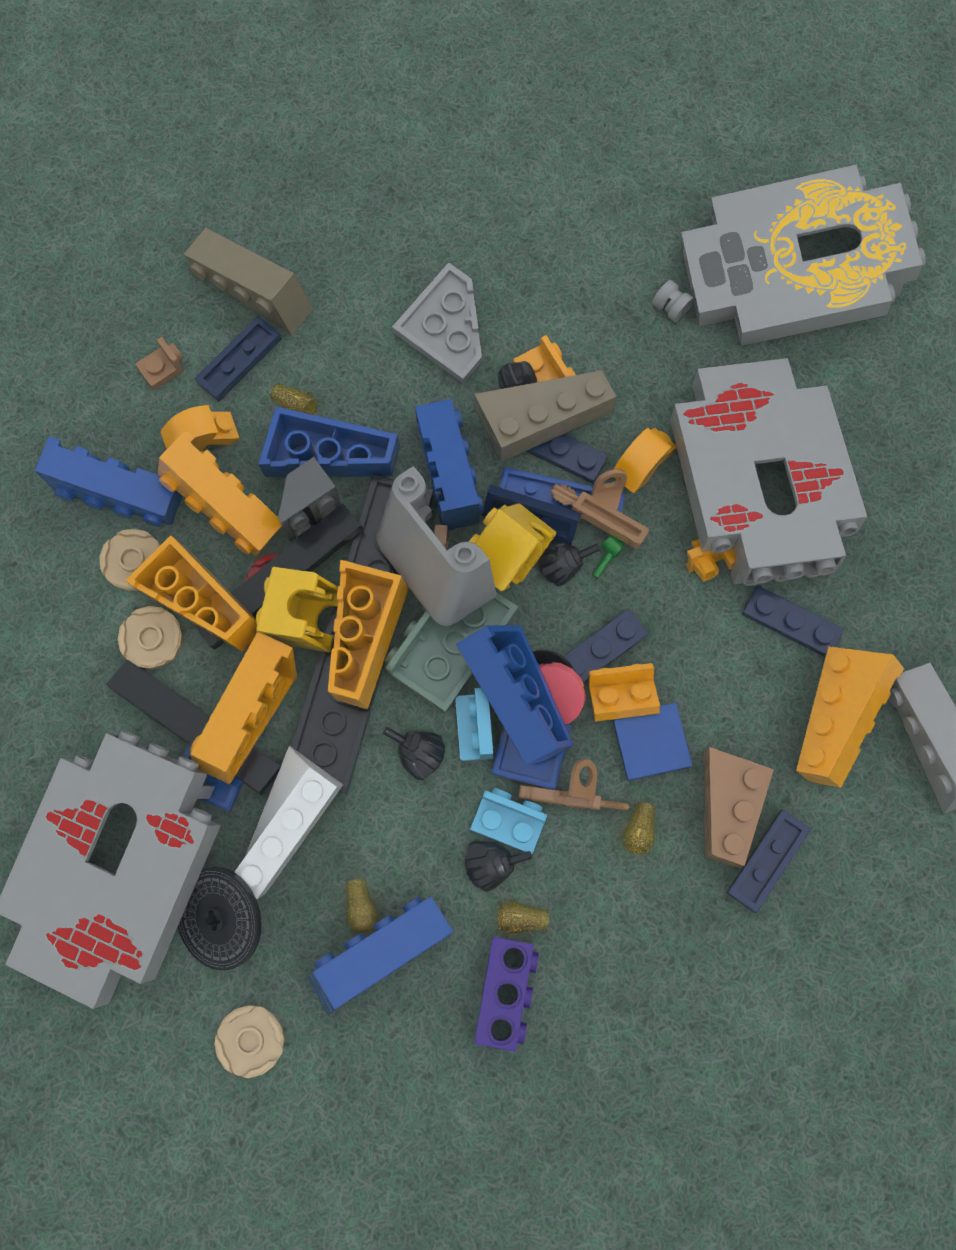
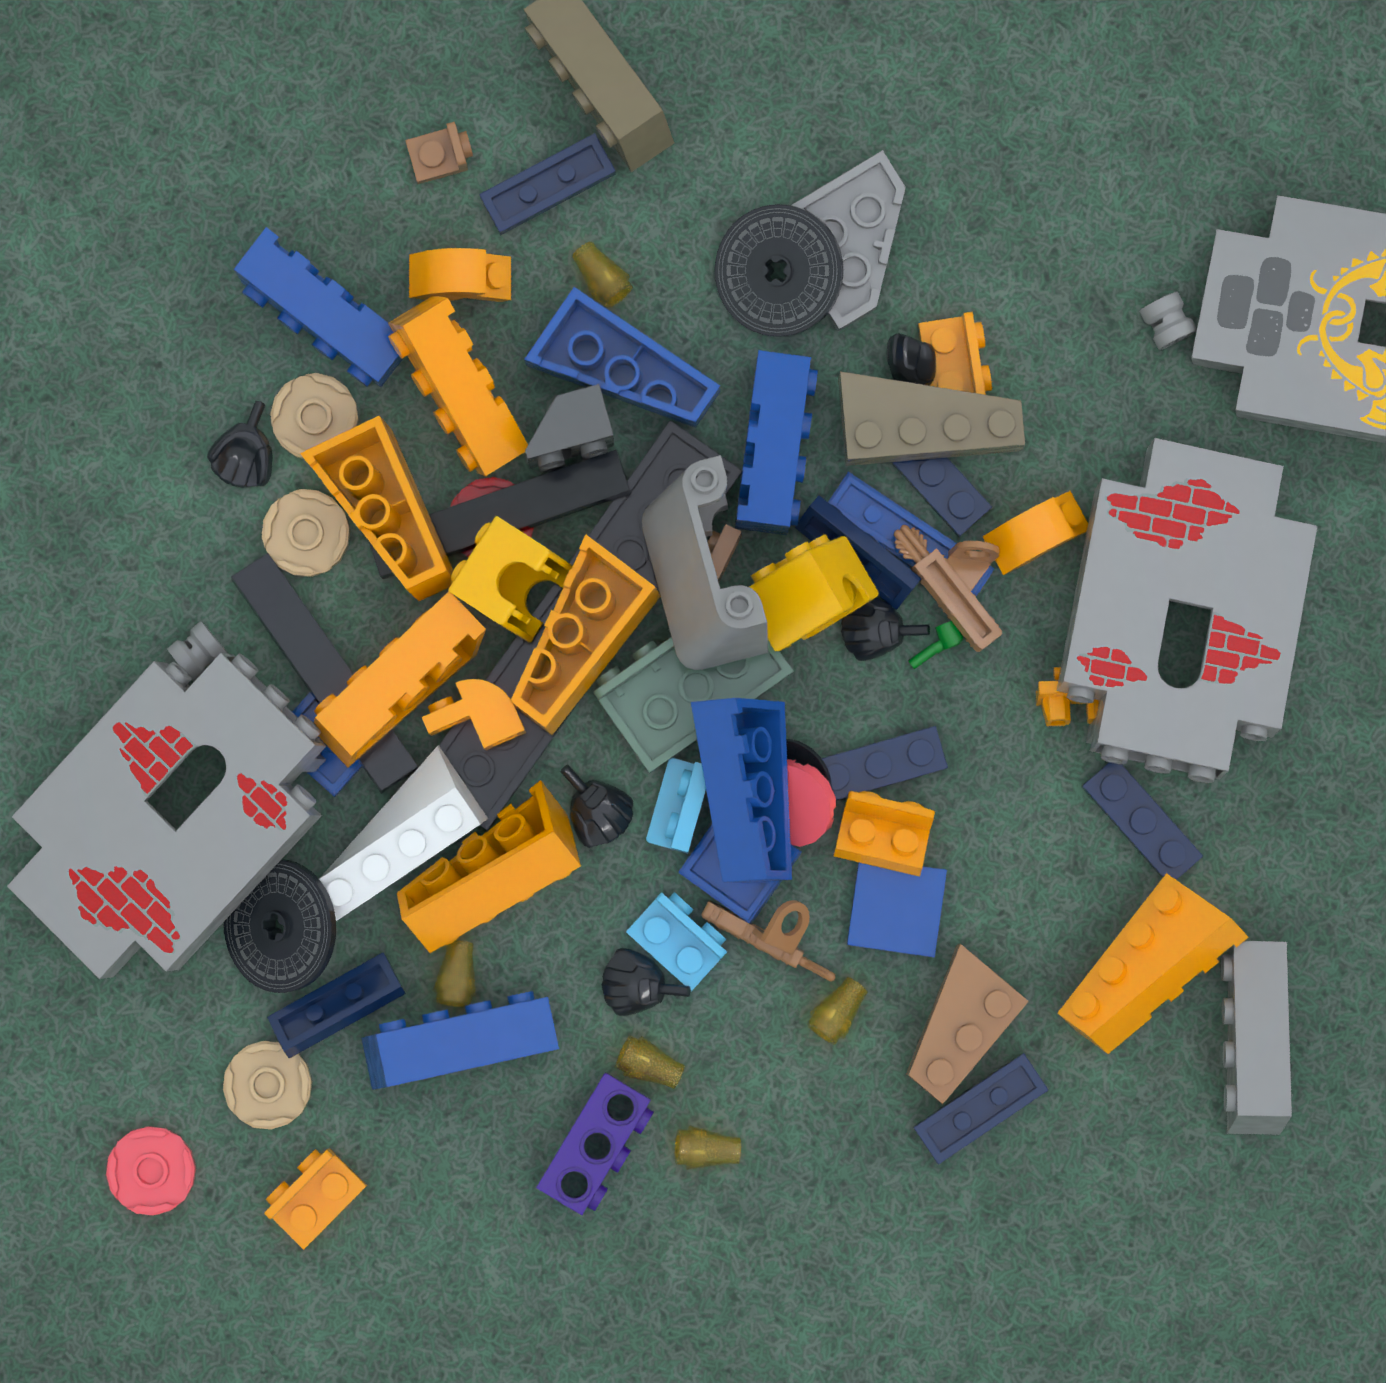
camera: 15 degrees right, 10 degrees up
(89, 599) = (243, 453): none -> black piece
(90, 747) = (197, 650): none -> light grey wheel
(195, 1139) = (167, 1165): none -> coral tile
(279, 962) = (336, 1005): none -> dark blue plate
(312, 704) = (485, 705): none -> light orange brick
(312, 1114) = (314, 1197): none -> light orange bracket
(357, 822) = (491, 871): none -> light orange wedge
(398, 336) = (812, 270): none -> black piece
(585, 965) = (705, 1148): none -> clear yellow cone

